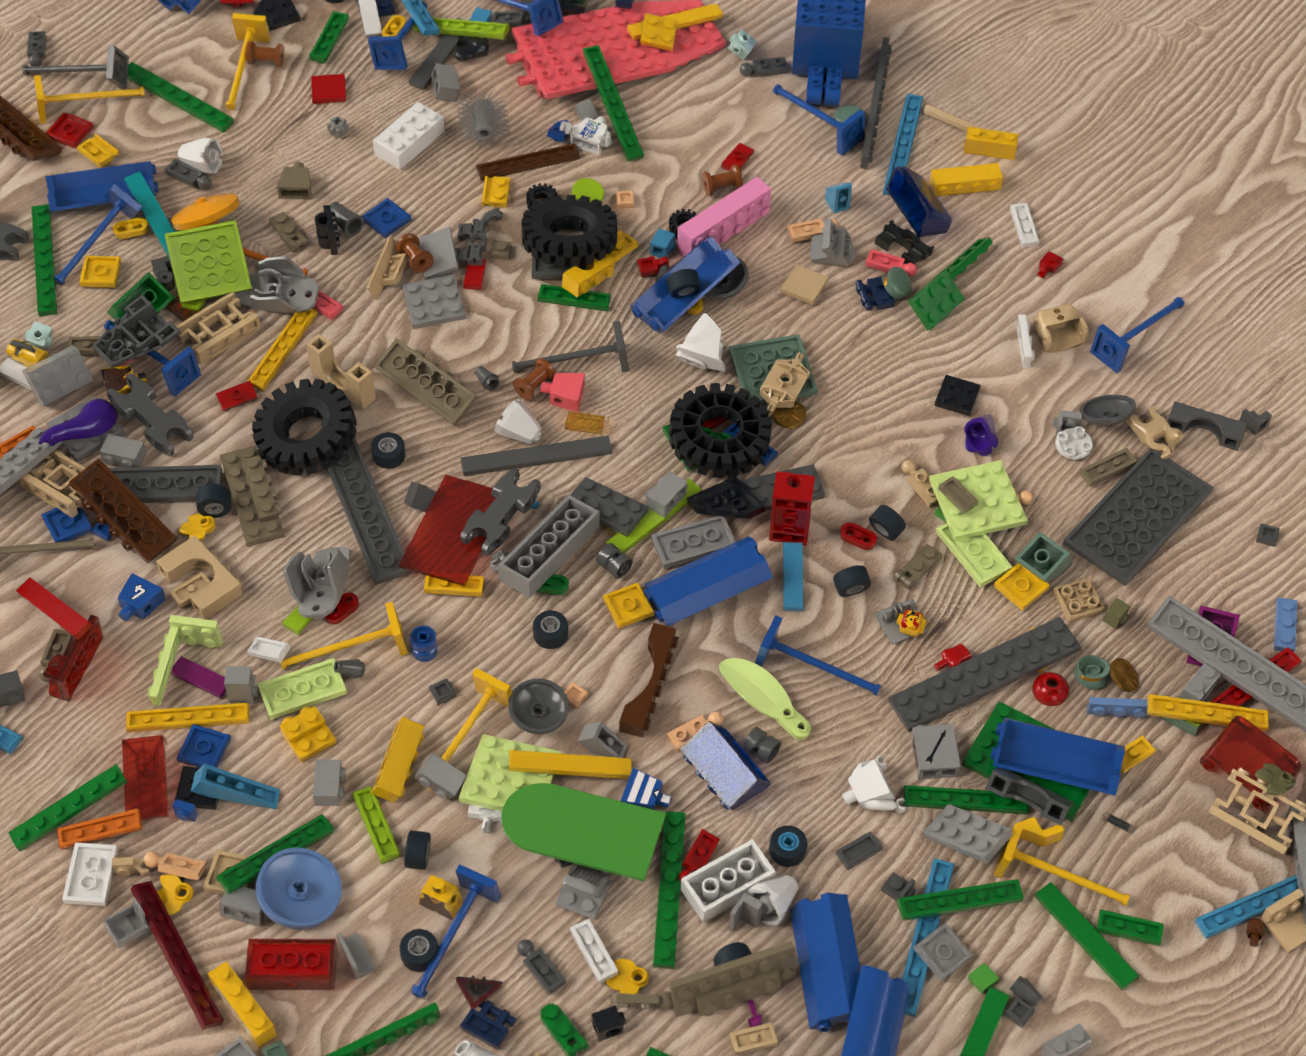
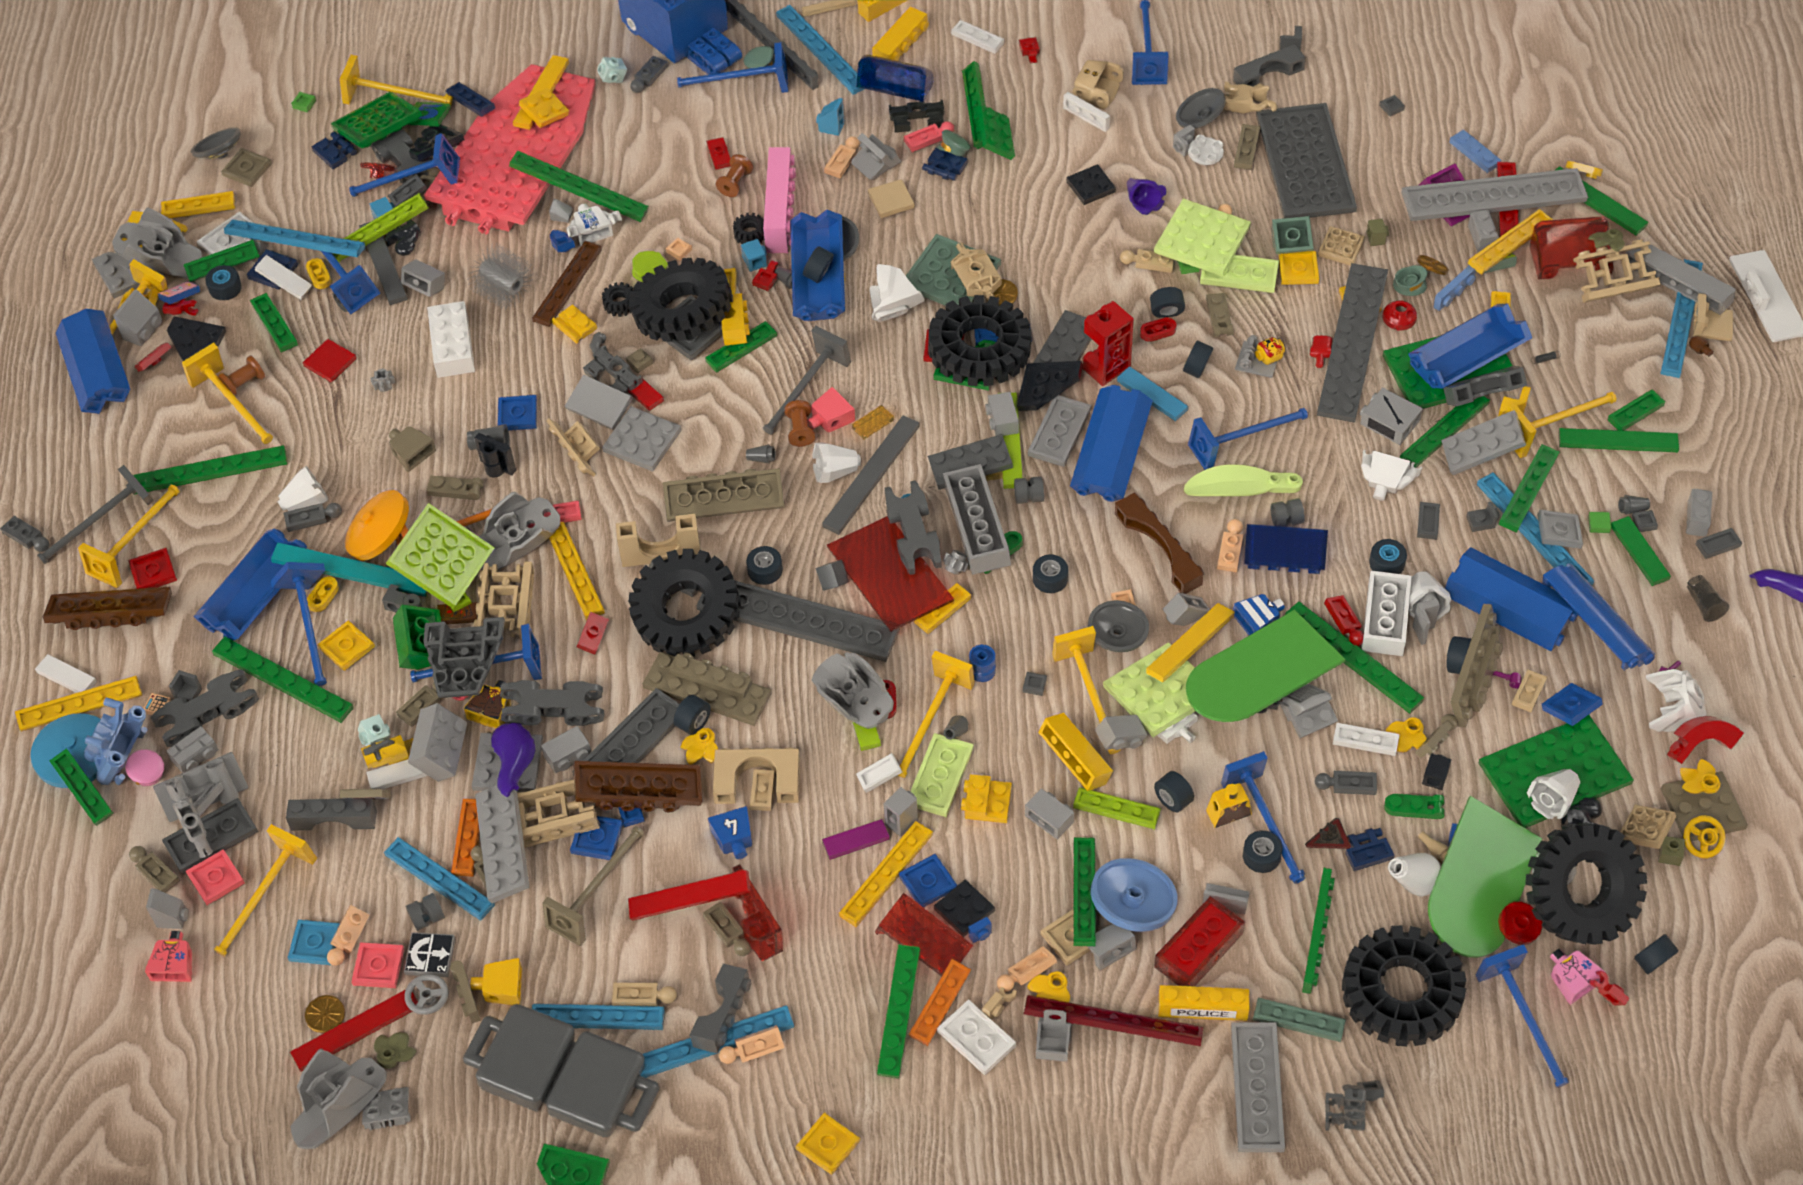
camera: 45 degrees left, 0 degrees up
(98, 151) = (205, 563): yellow plate -> none
(186, 630) = (808, 816): yellowish green bracket -> none
(234, 788) = (994, 880): dark azure slope -> none
(419, 259) = (596, 415): dark orange piece -> none
(628, 605) = (1076, 510): yellow plate -> none
(958, 495) = (1191, 242): dark tan tile -> none

